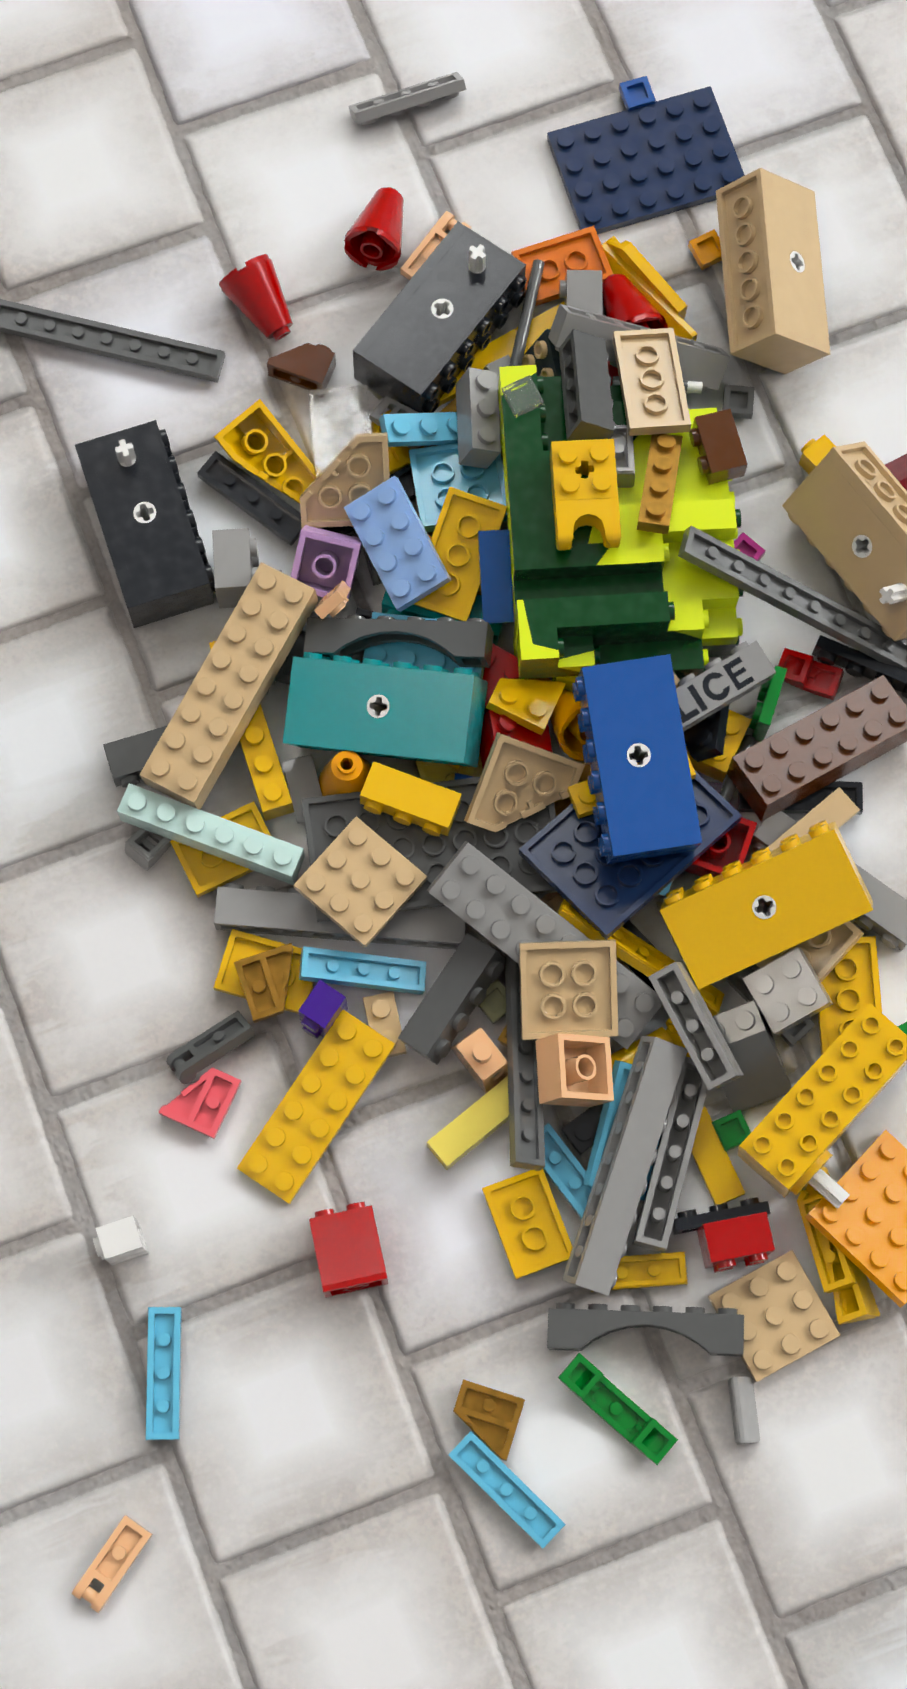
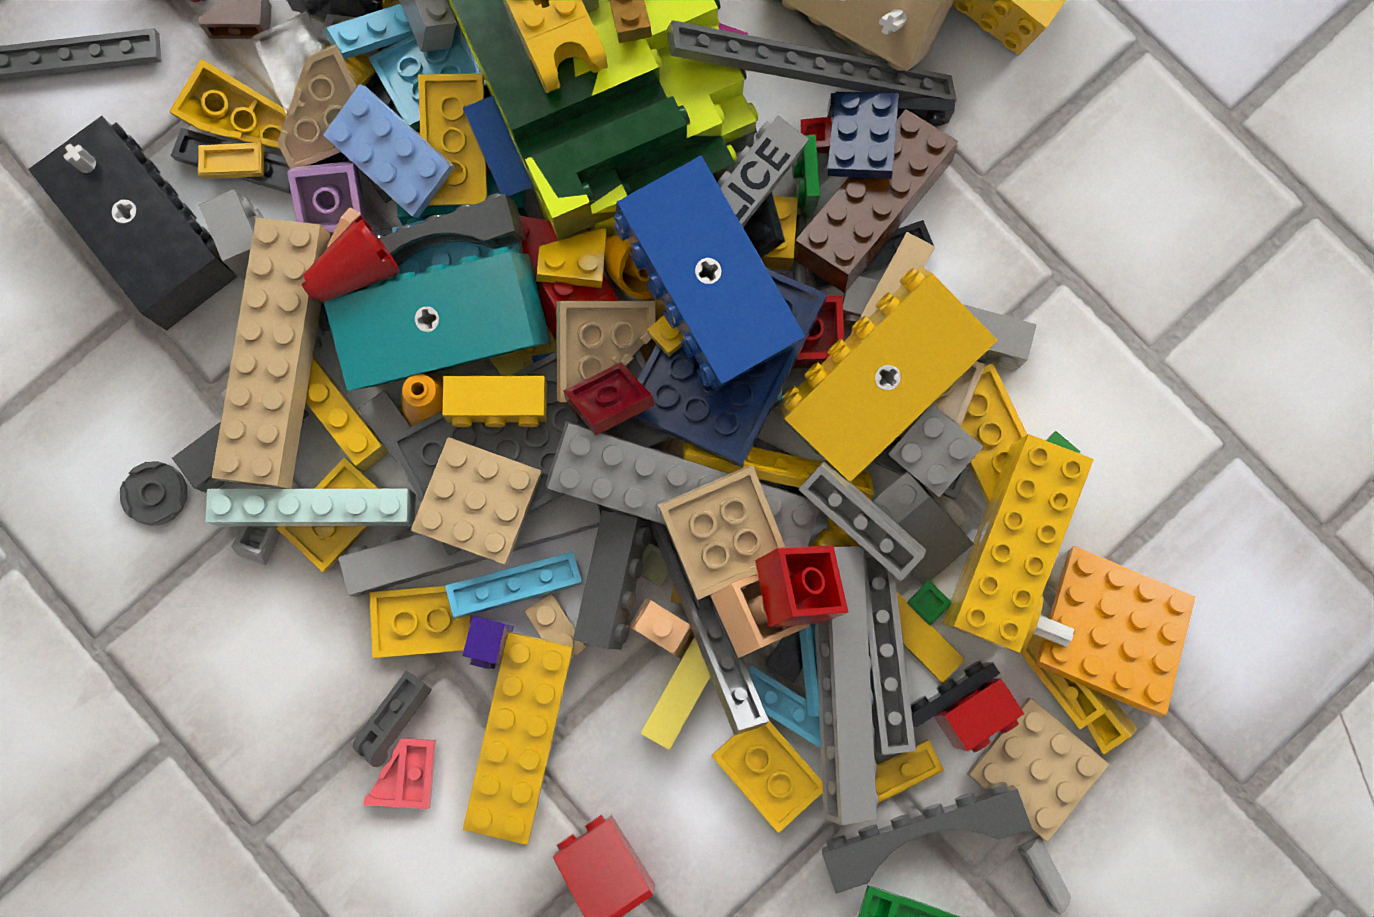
camera: 20 degrees left, 5 degrees up
(71, 770) = (153, 493): none -> dark grey tile
(250, 498) = (230, 160): none -> yellow tile
(266, 981) = (421, 633): pearl gold wing -> none
(329, 633) = (349, 263): none -> red cone
(511, 834) = (608, 398): none -> dark red plate
(618, 1059) = (801, 586): none -> red brick
(832, 684) = (863, 135): none -> plate

